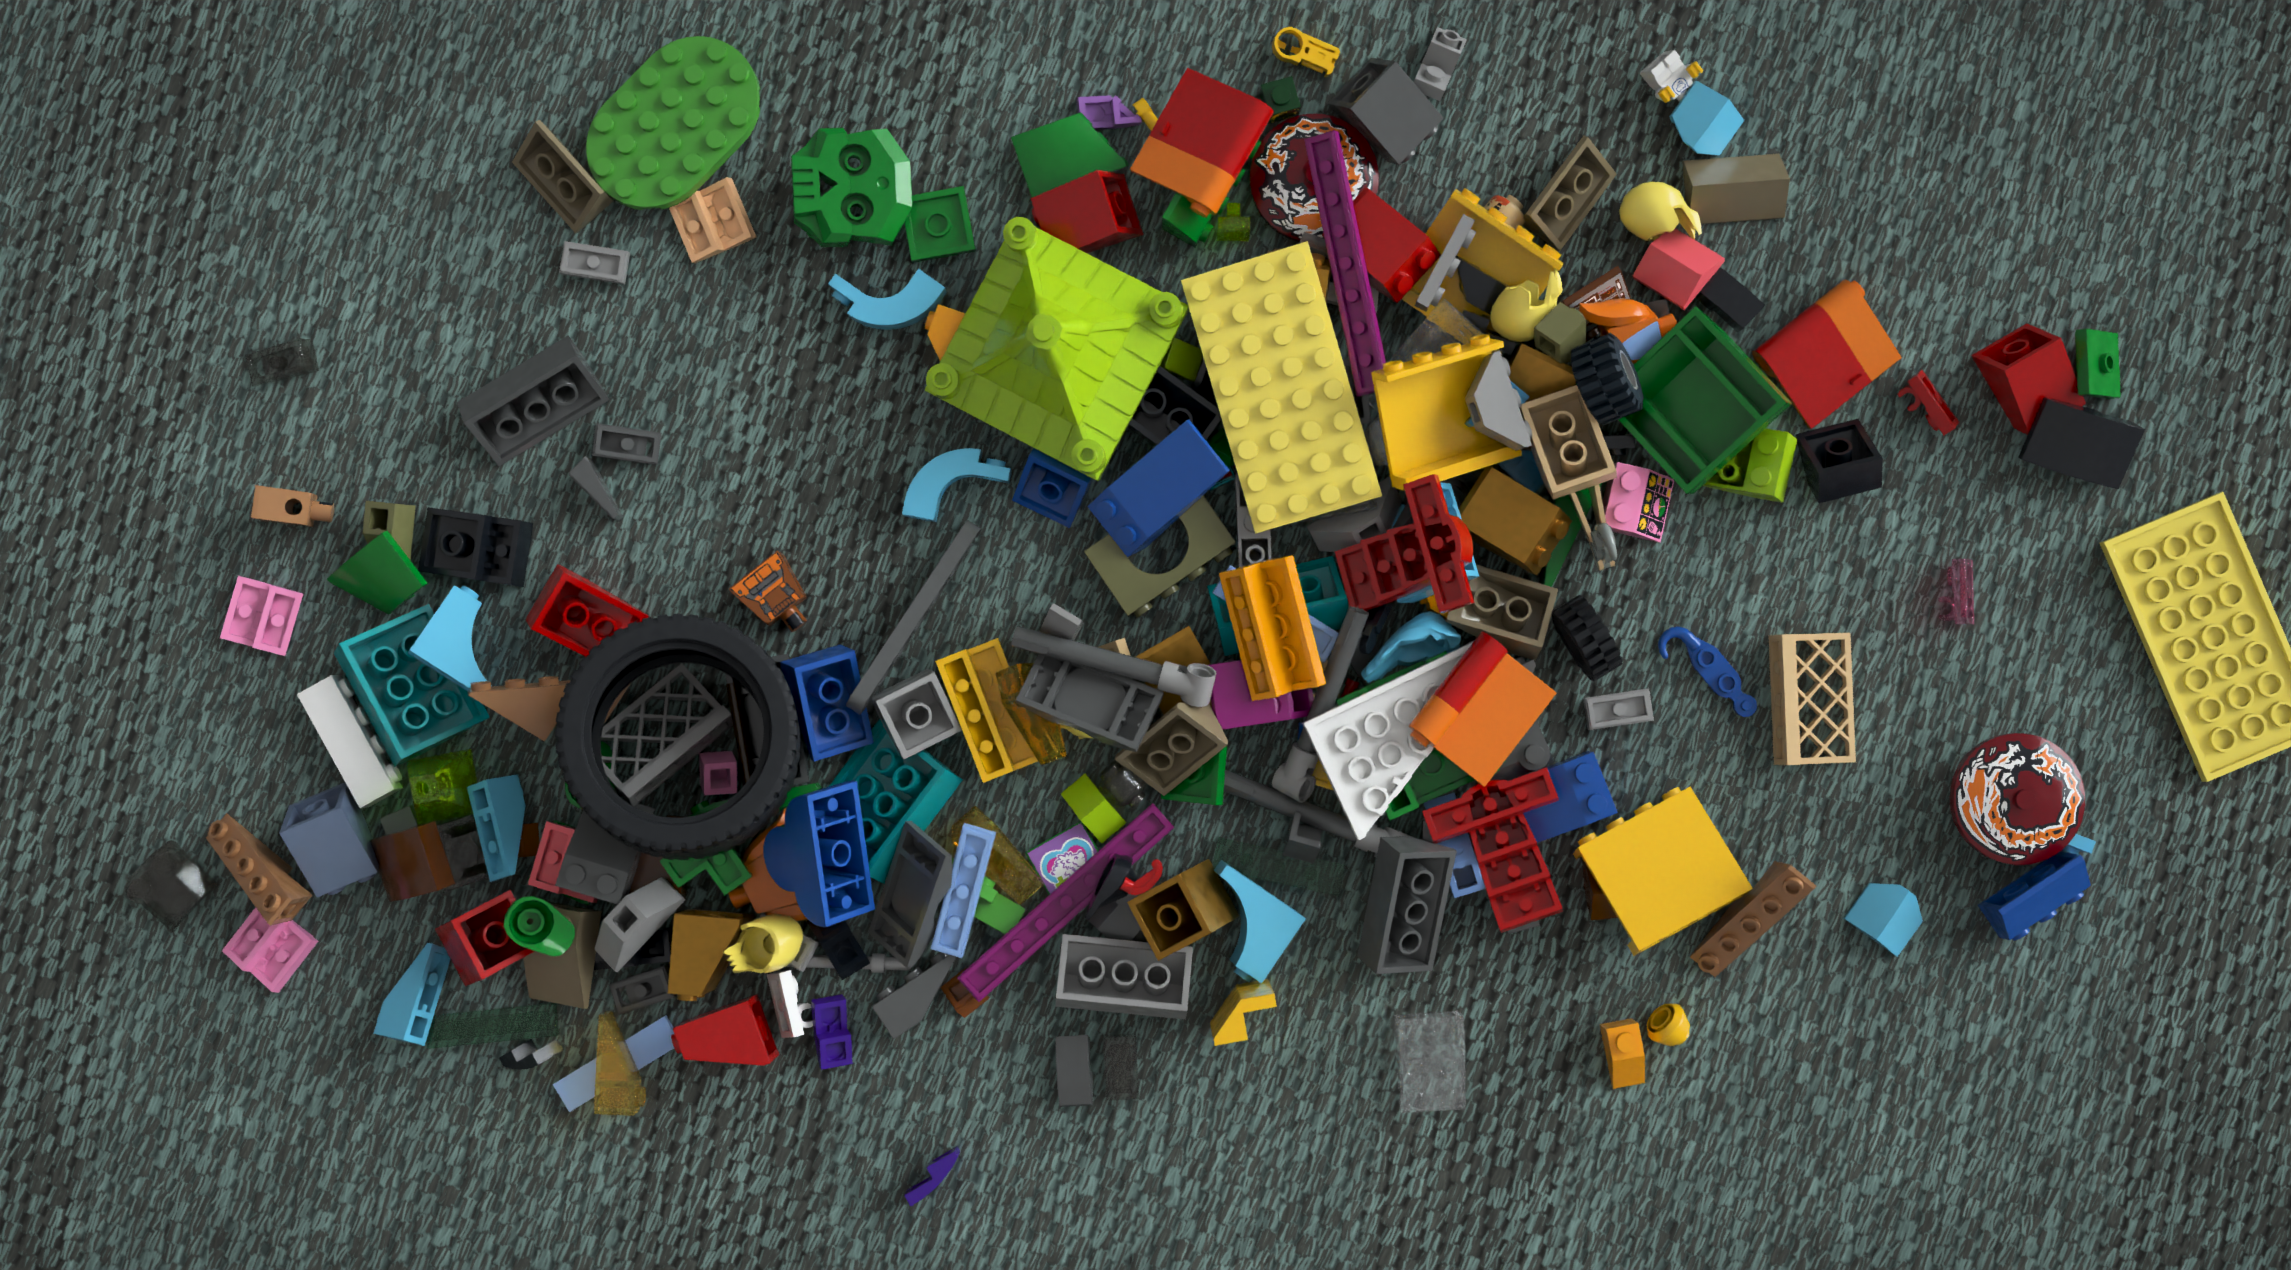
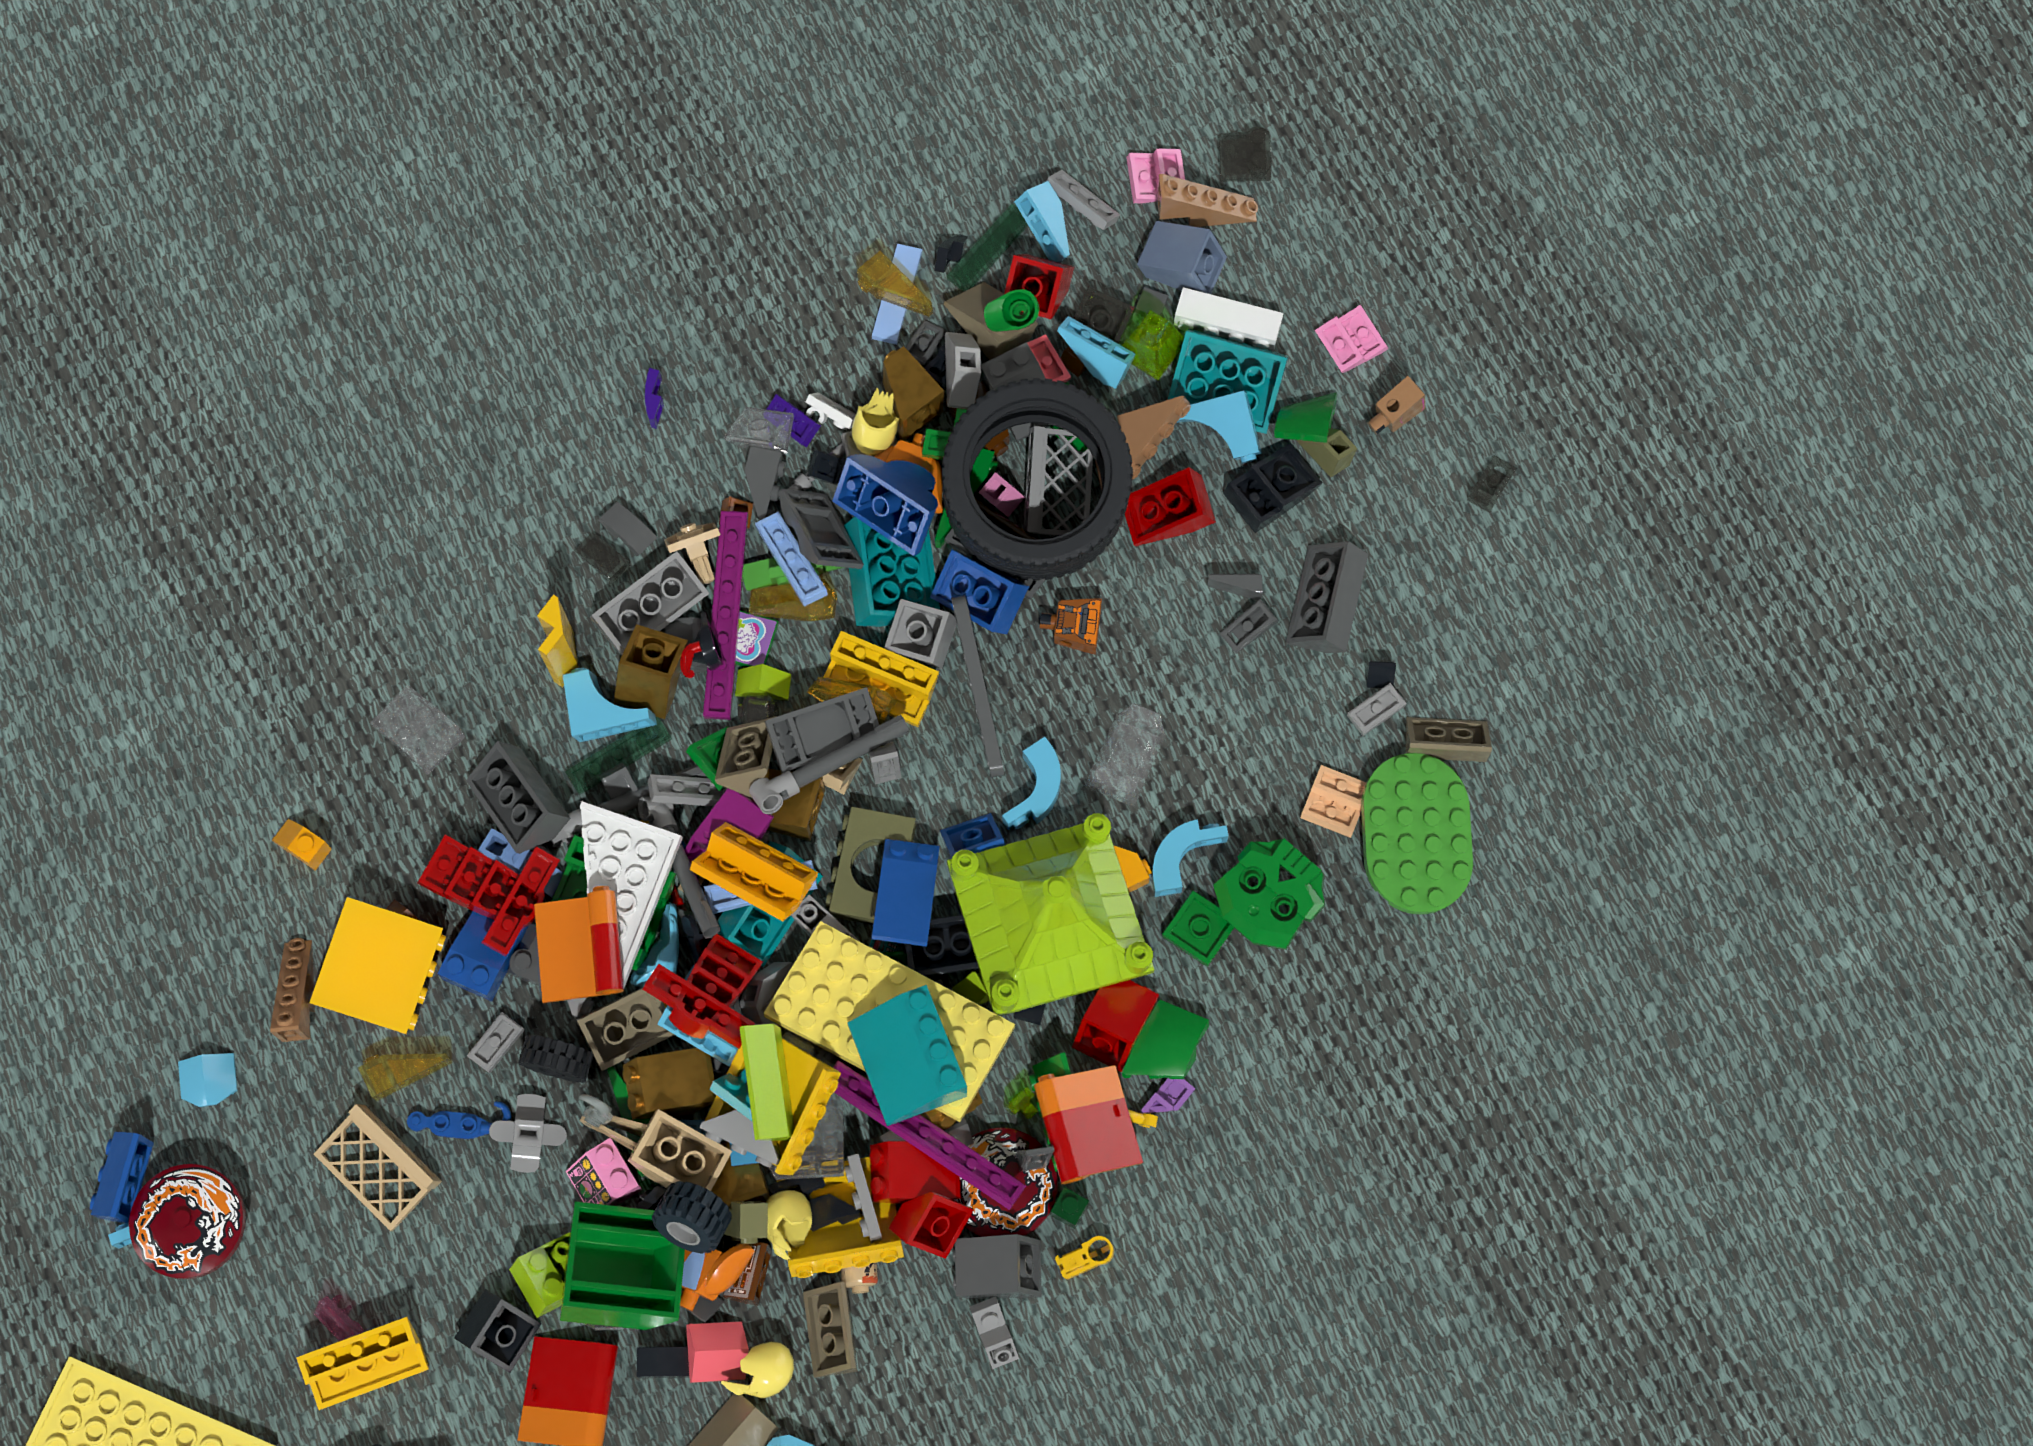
camera: 135 degrees right, 15 degrees down
(360, 987) = (1083, 200): none -> light grey plate
(412, 862) = (1121, 285): reddish brown slope -> none
(559, 288) = (1380, 674): none -> black slope
(728, 1035) = (847, 361): red slope -> none
(846, 434) = (1127, 754): none -> clear slope
(867, 1046) = (761, 429): none -> clear slope
(1029, 998) = (693, 538): none -> tan piece
(1257, 771) = (683, 790): none -> light grey plate
(1269, 164) = (1034, 1158): none -> dark grey slope
(1302, 332) = (907, 1056): none -> teal slope
(1412, 190) = (931, 1223): none -> red slope
(1442, 422) = (767, 1082): none -> lime slope
(1473, 436) = (734, 1092): none -> teal plate
(1662, 604) = (527, 1133): none -> light grey piece
(1668, 1025) = (287, 883): yellow cone -> none
(1725, 765) = (393, 1072): none -> clear yellow slope
(1939, 414) = (471, 1428): red plate -> none
(1974, 537) = (363, 1363): none -> yellow slope

